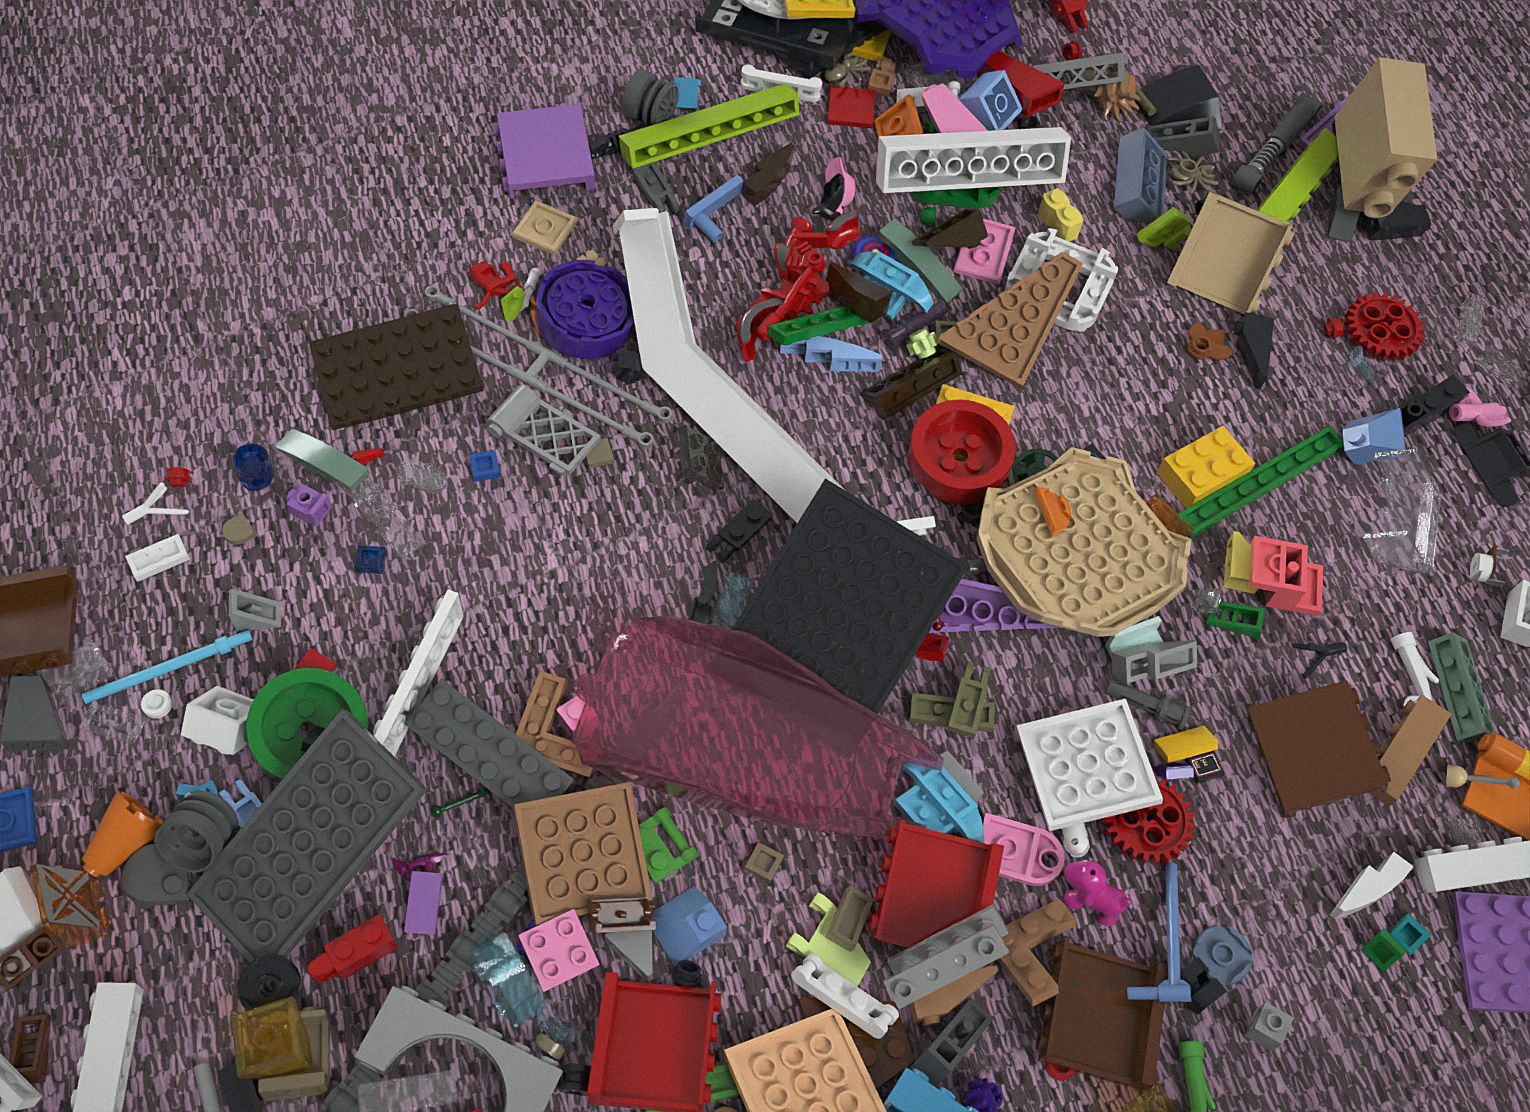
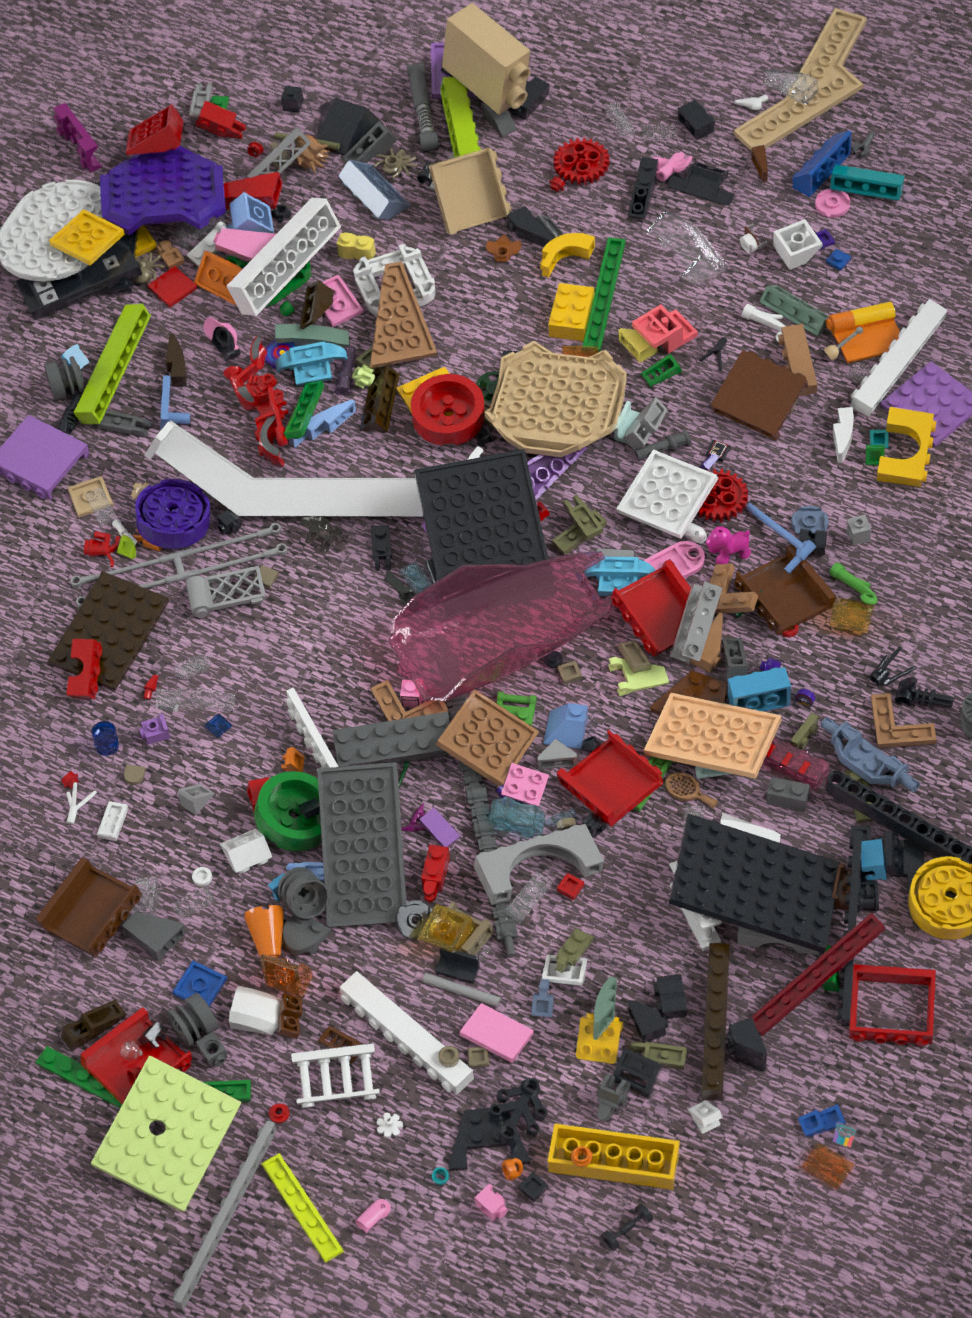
camera: 35 degrees left, 5 degrees down
(222, 645) = (199, 825): medium azure bar -> none
(322, 459) = (133, 703): sand green slope -> none
(334, 371) = (85, 684): none -> red arch
(384, 671) = (293, 760): none -> orange tile
(484, 465) = (218, 633): blue plate -> none
(538, 244) = (101, 506): none -> clear tile
(621, 914) = (534, 746): hinge -> none
(761, 80) = (113, 311): white plate -> none
(763, 832) = (553, 659): none -> black plate
(844, 996) = (669, 685): white plate -> none
(858, 293) = (303, 380): dark brown slope -> none
(1054, 509) = (526, 393): orange tile -> none
(1158, 35) = (292, 99): none -> black brick
(1168, 229) = (421, 205): lime plate -> none
(1186, 744) = (699, 448): yellow tile -> none
(1206, 600) = (639, 375): clear slope -> none
(1273, 394) = (566, 245): none -> yellow arch
(1278, 367) = (550, 226): none -> dark grey tile
(1361, 364) = (590, 191): clear light blue bar -> none
(1373, 435) = (635, 222): medium blue slope -> none
(1472, 974) = (911, 470): none -> yellow arch

